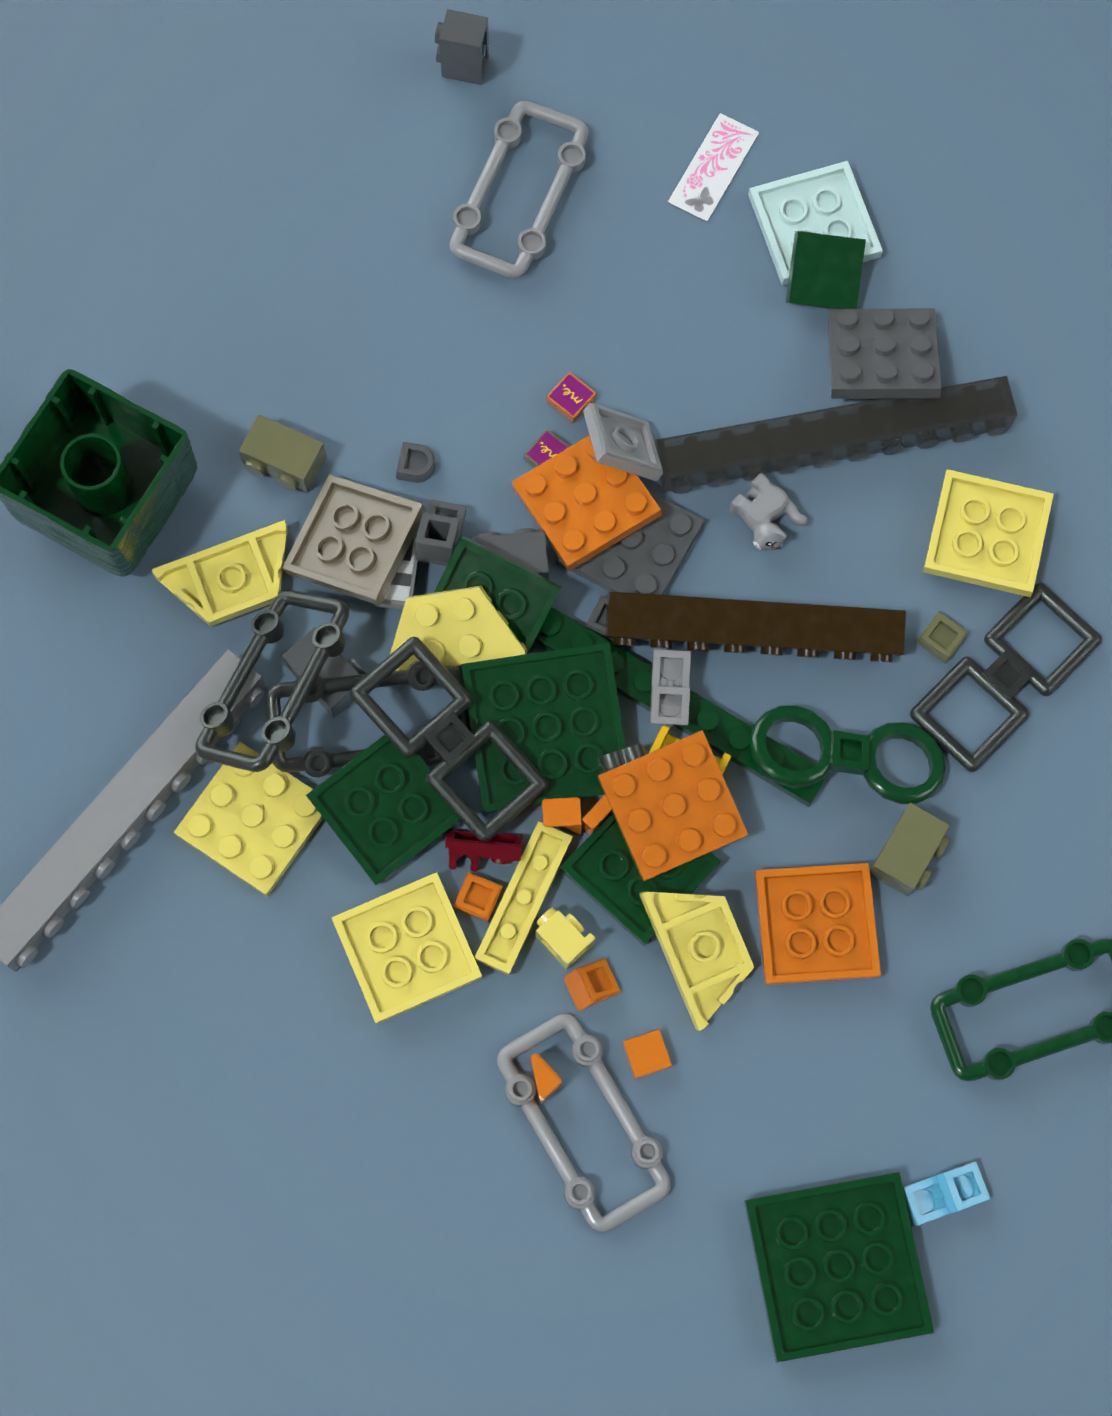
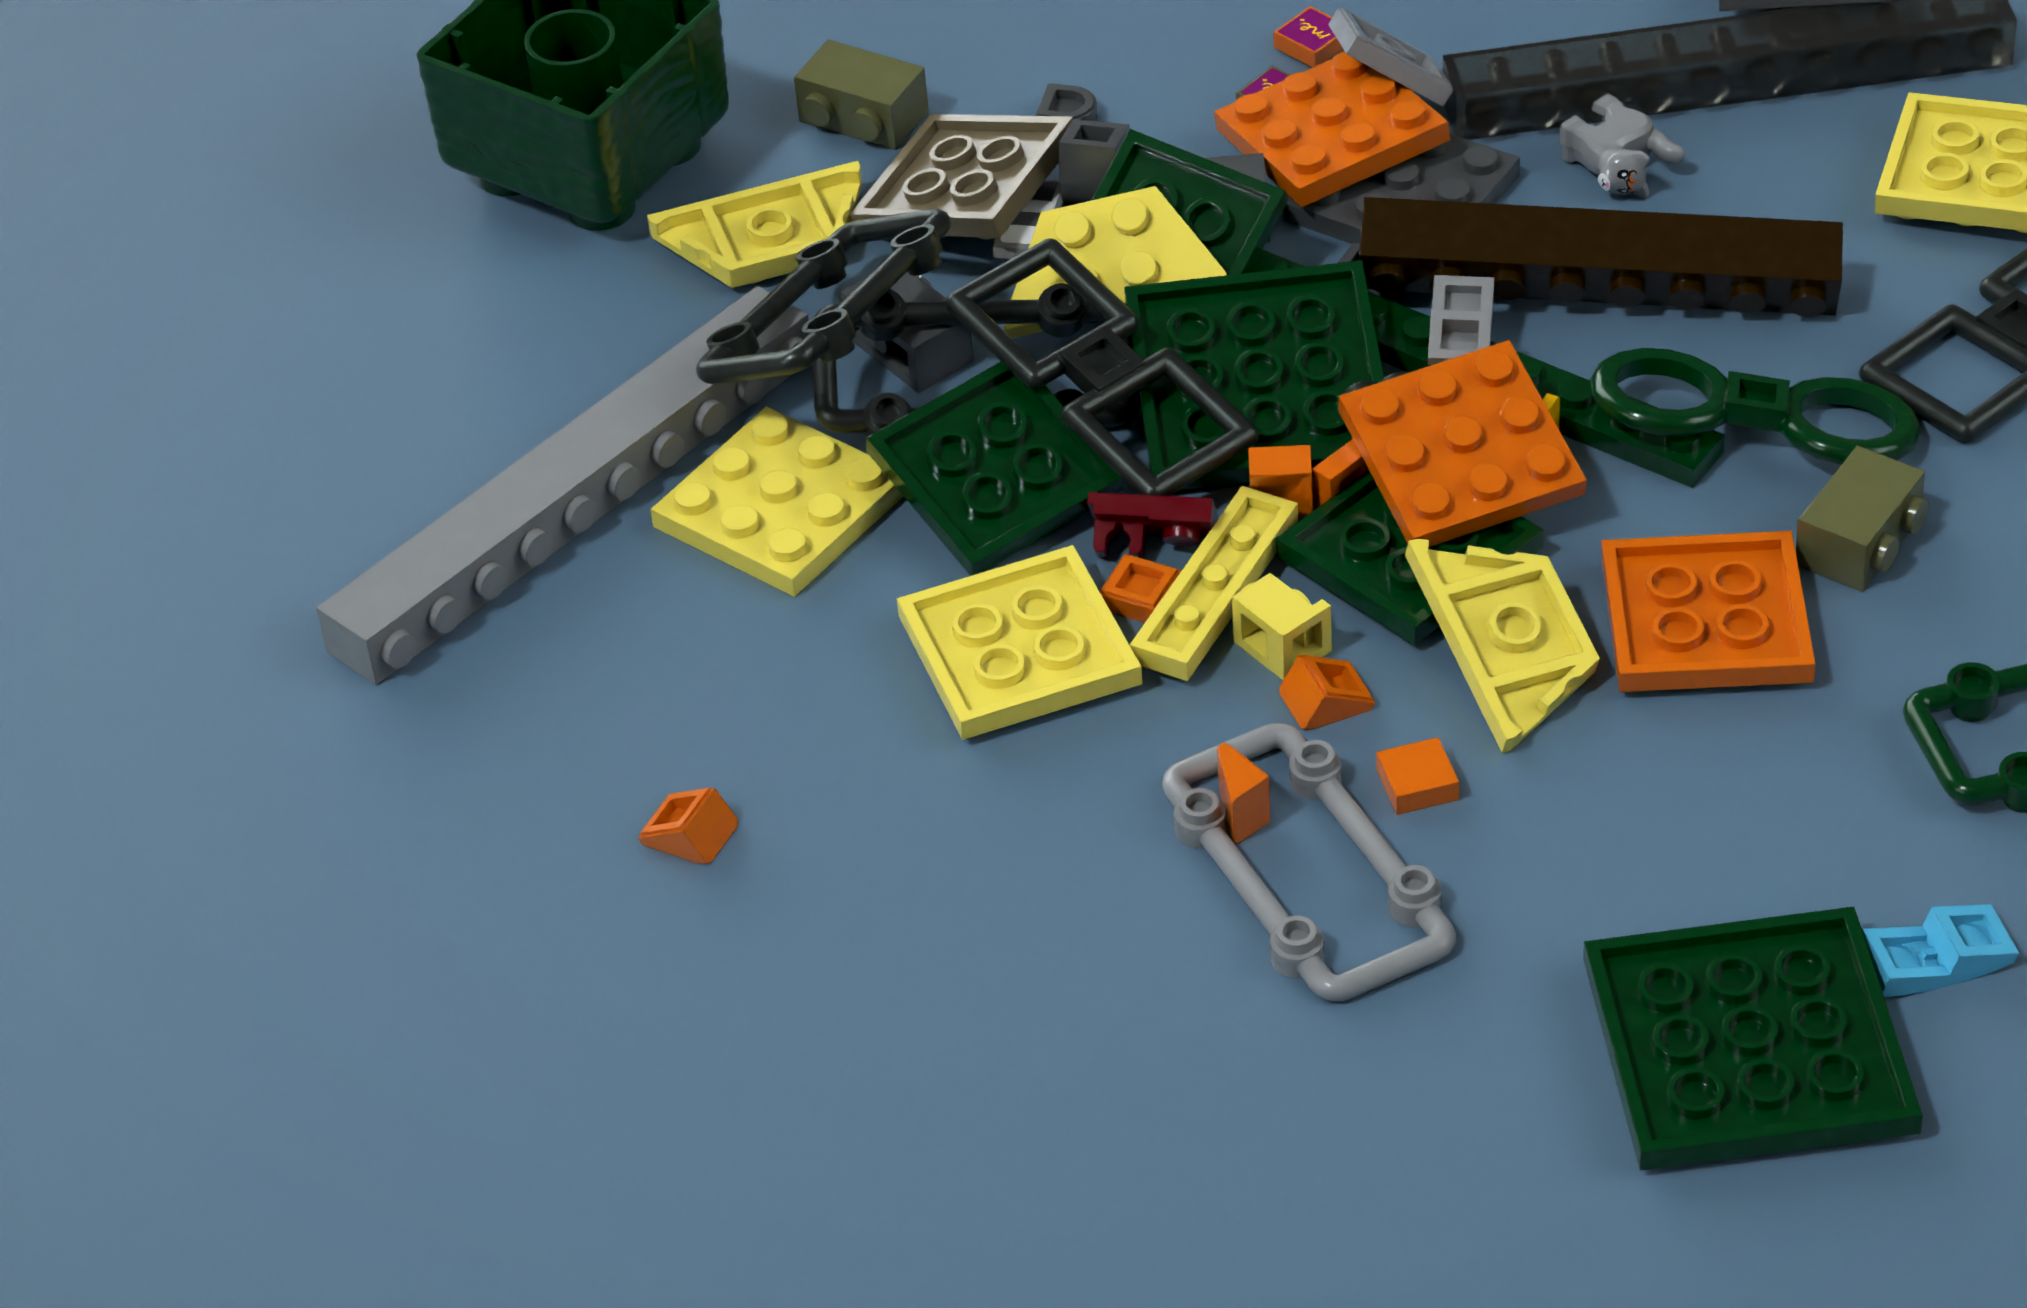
camera: 10 degrees right, 30 degrees down
(216, 1095) = (691, 825): none -> orange slope
(942, 637) = (1909, 288): olive tile -> none

